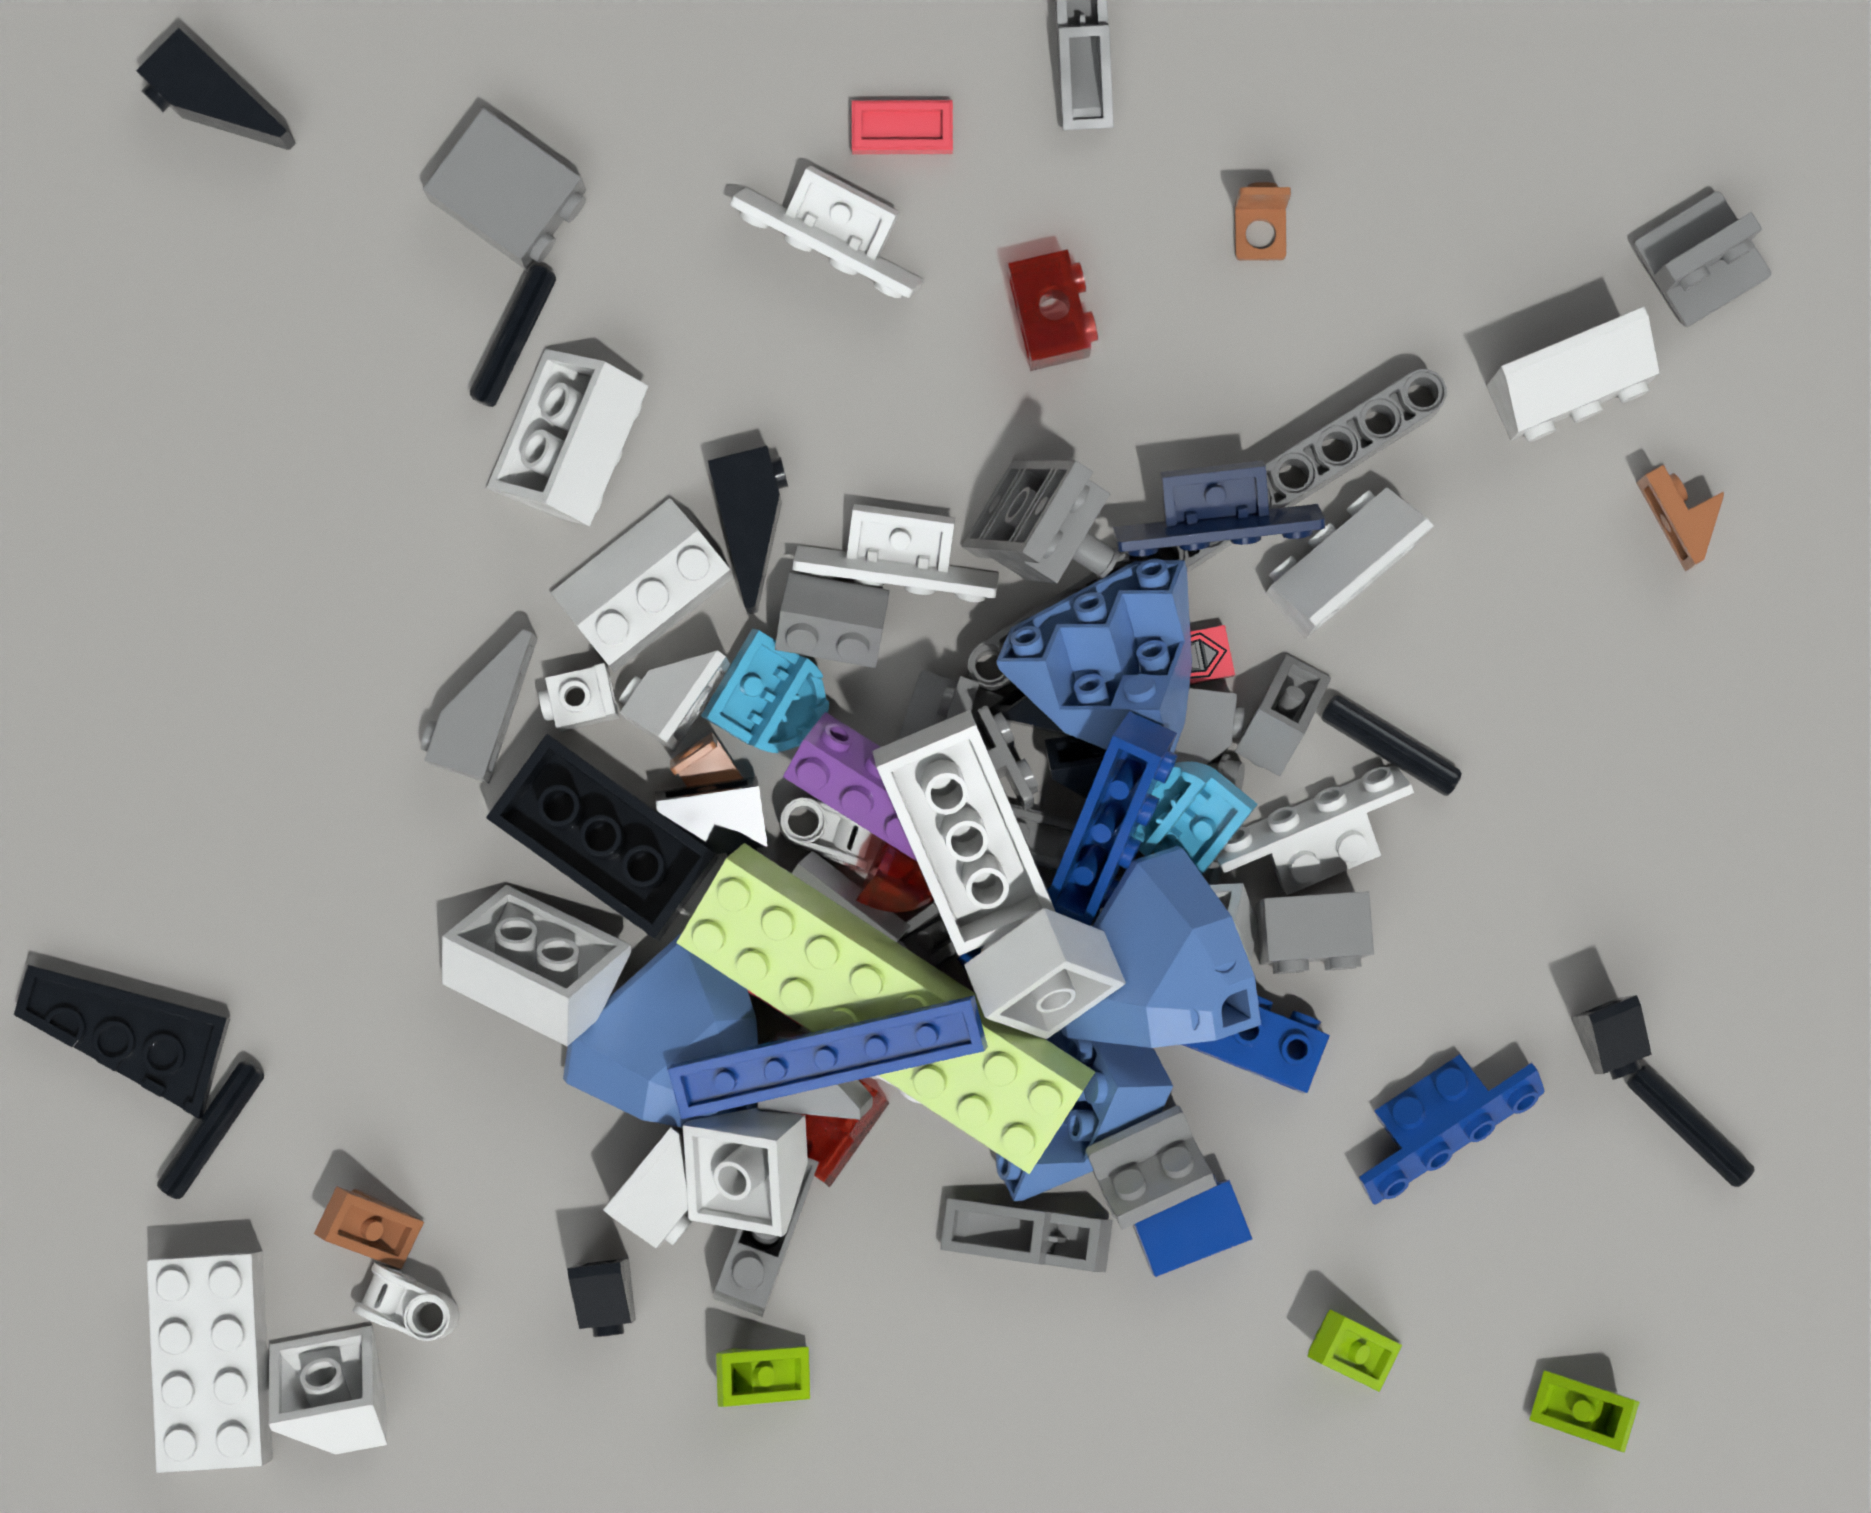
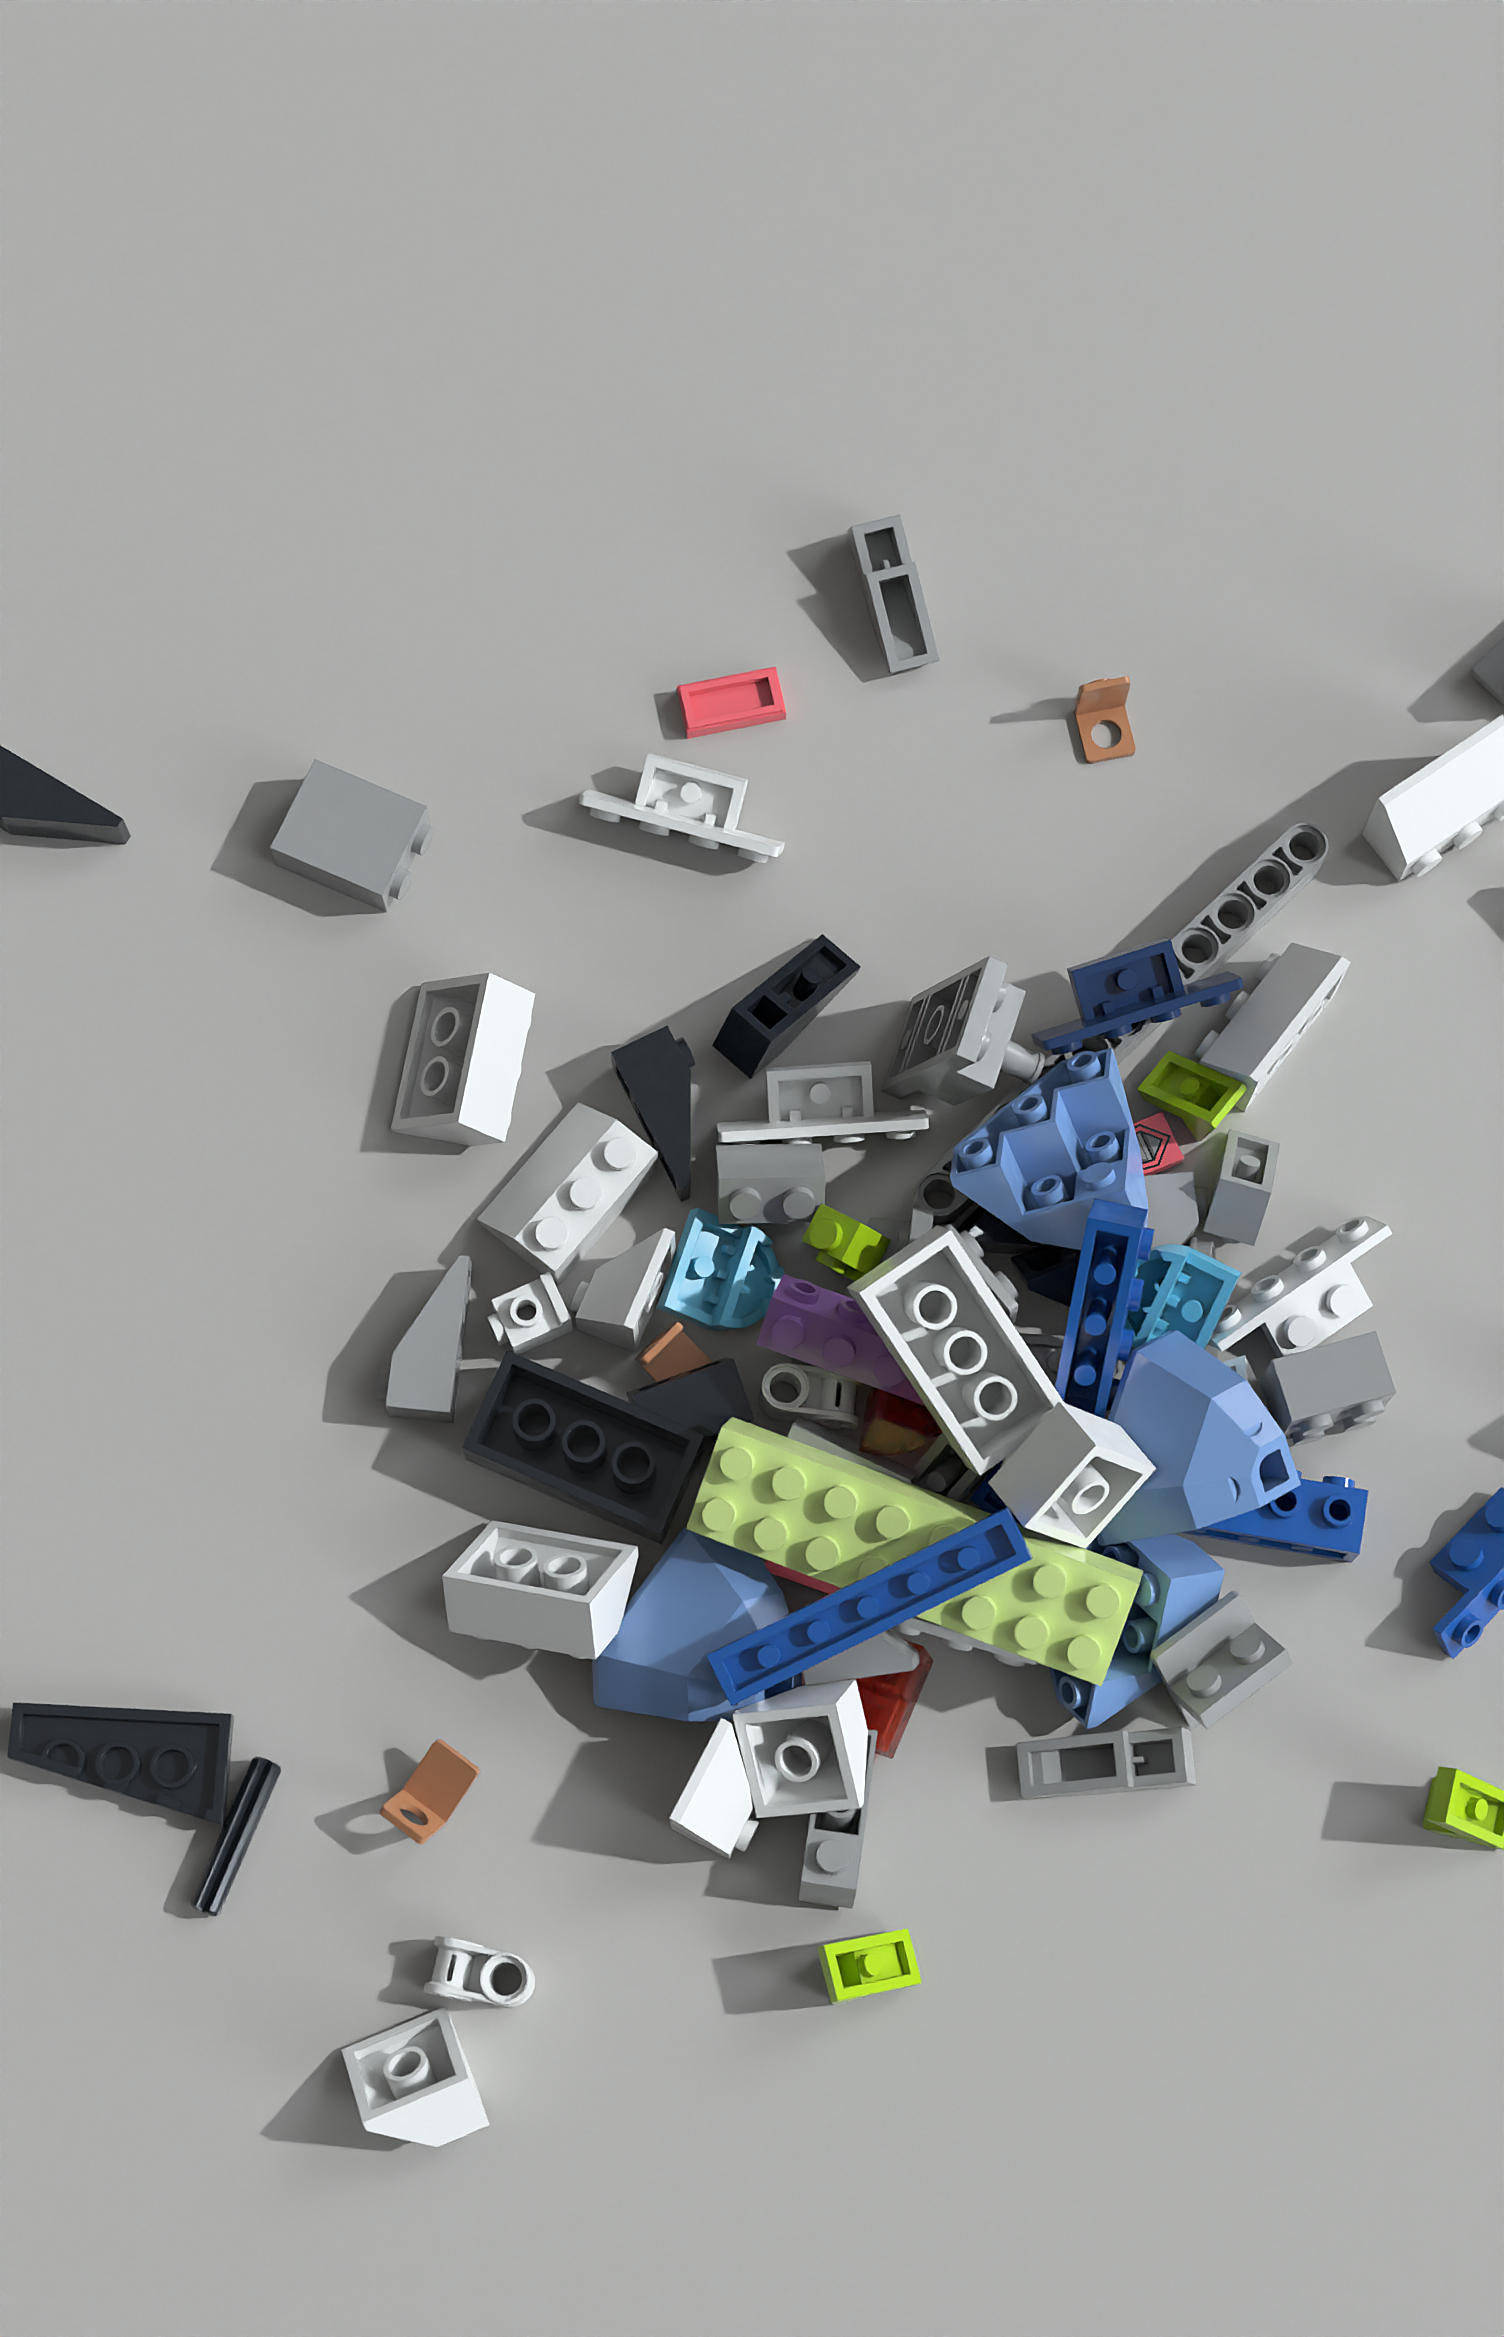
camera: 15 degrees left, 10 degrees down
(209, 1362) = (283, 2077): white brick -> none
(368, 1227) = (423, 1899): nougat slope -> none
(396, 1130) = (432, 1792): none -> nougat bracket
(512, 335) = (387, 976): black axle -> none
(602, 1295) = (684, 1917): black slope -> none
(886, 445) = (784, 1006): none -> black slope
(891, 693) = (845, 1243): none -> lime brick
(1048, 340) = (918, 872): clear red brick -> none
(1193, 1229) = (1274, 1719): blue brick -> none
(1255, 613) = (1191, 1092): none -> lime slope
(1391, 745) = (1356, 1196): black axle -> none

